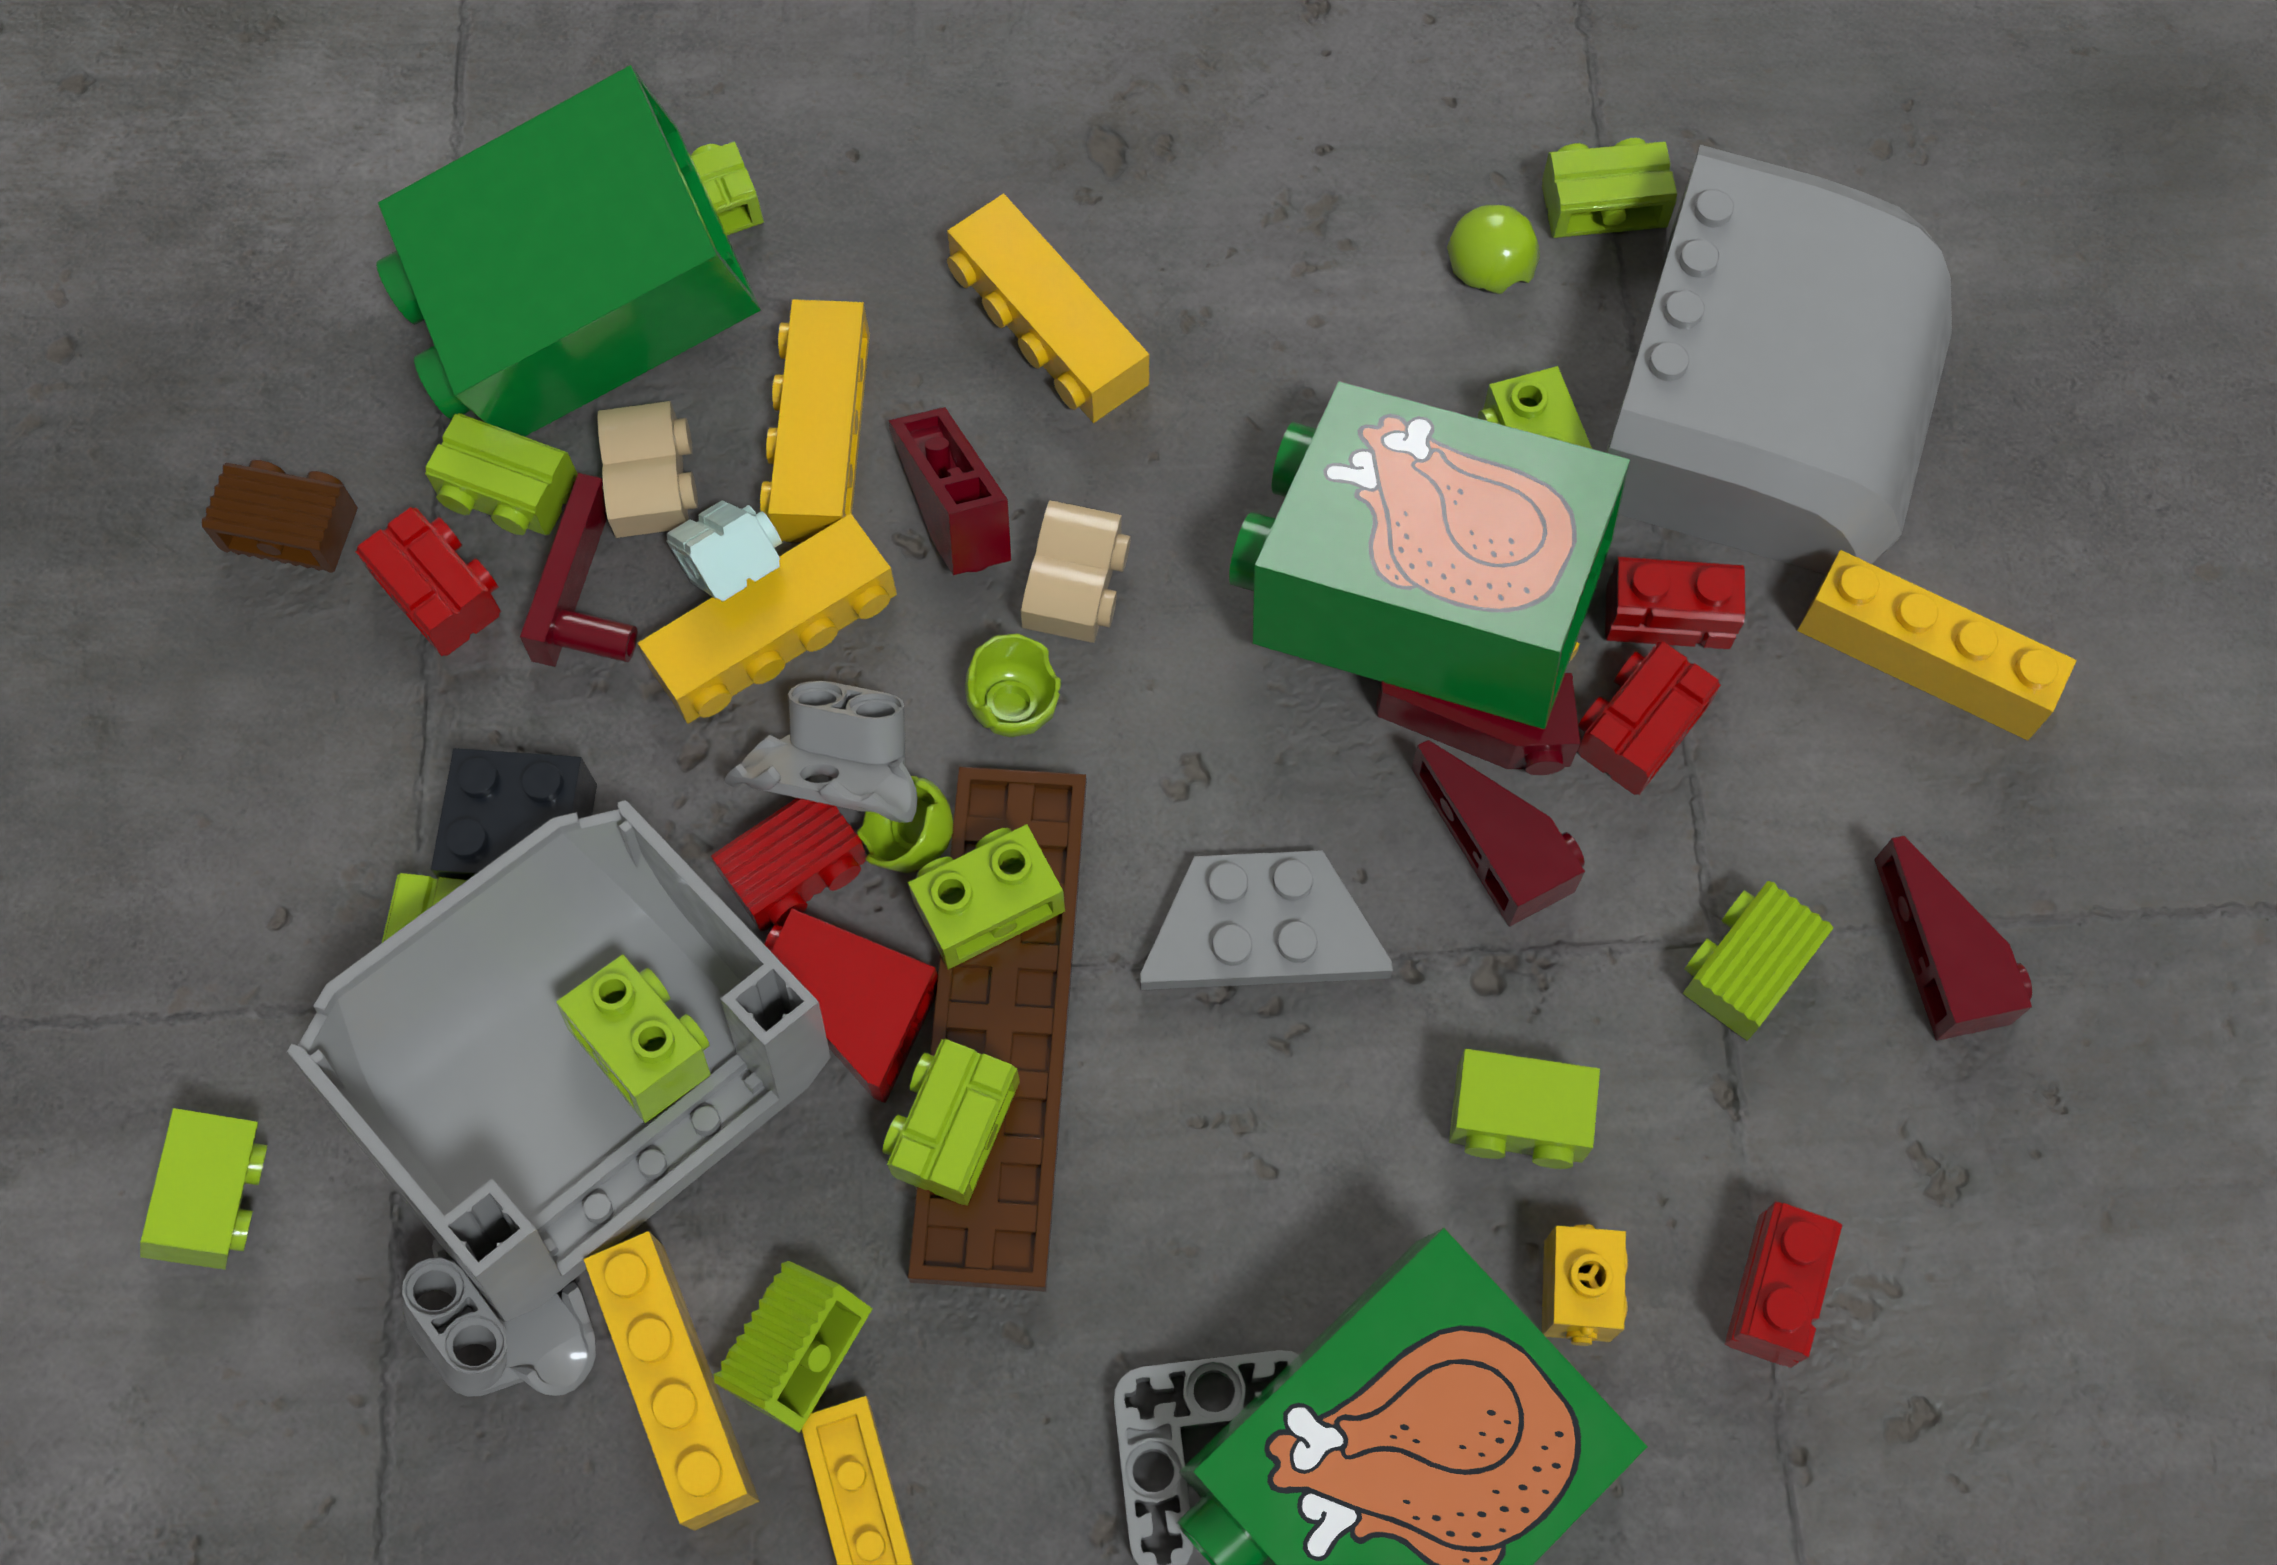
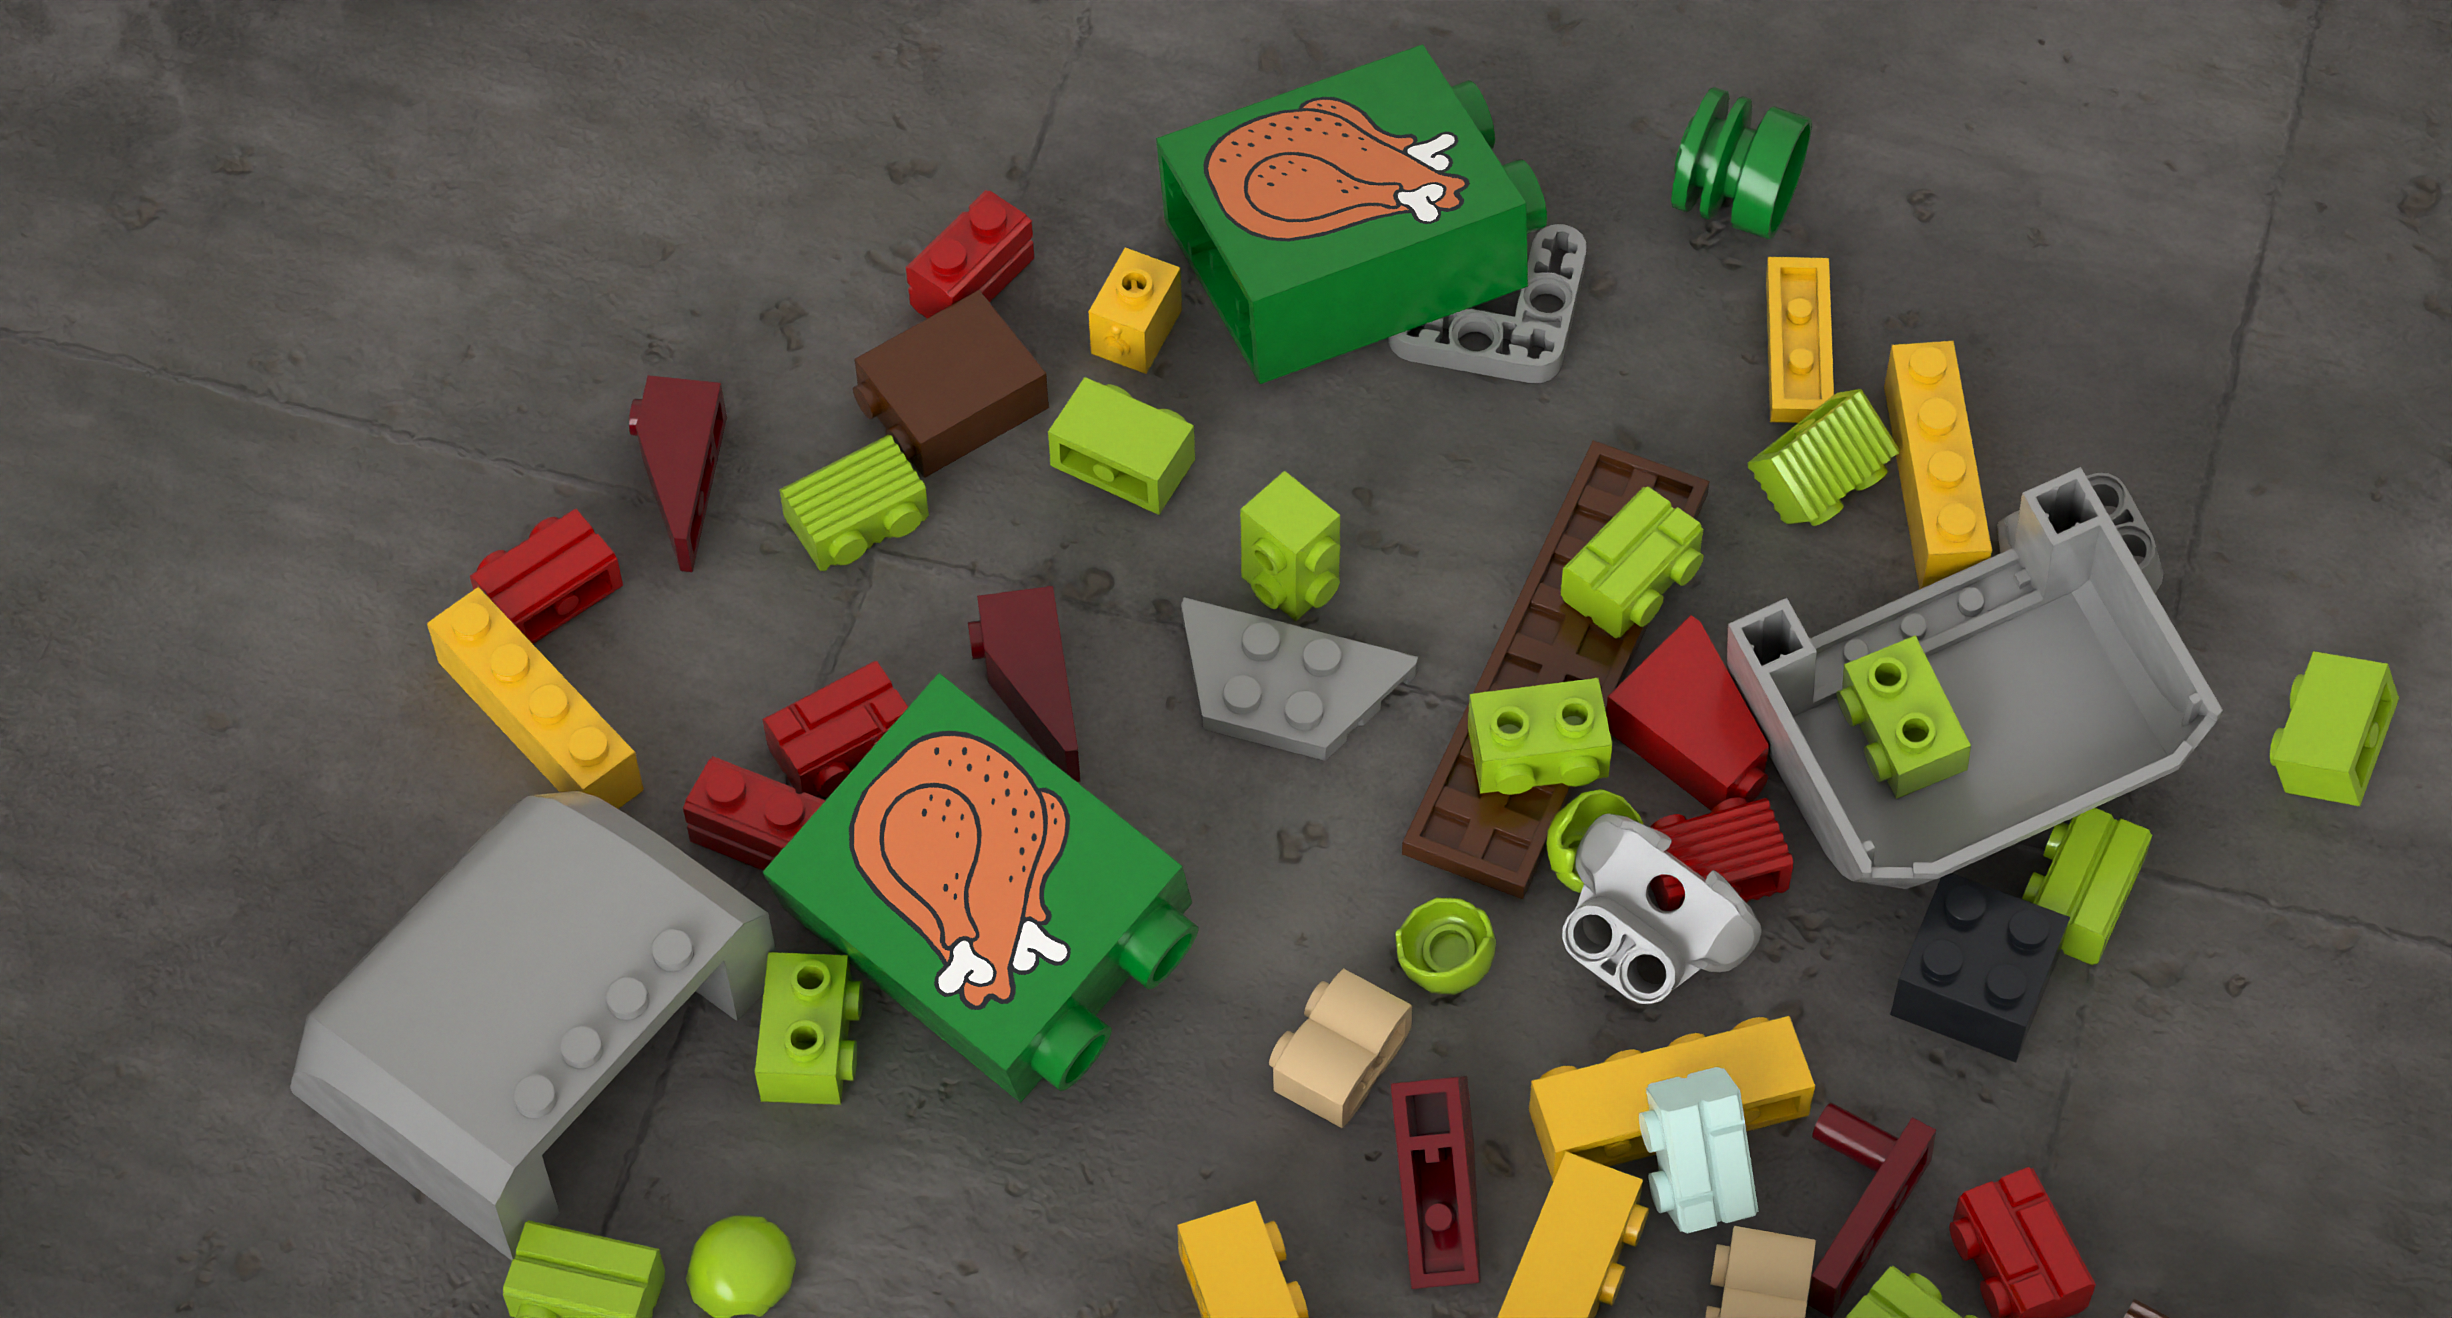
camera: 160 degrees left, 10 degrees down
(1302, 1024) = (1290, 547): none -> lime brick
(1732, 1130) = (950, 384): none -> reddish brown brick
(2002, 778) = (550, 575): none -> red brick

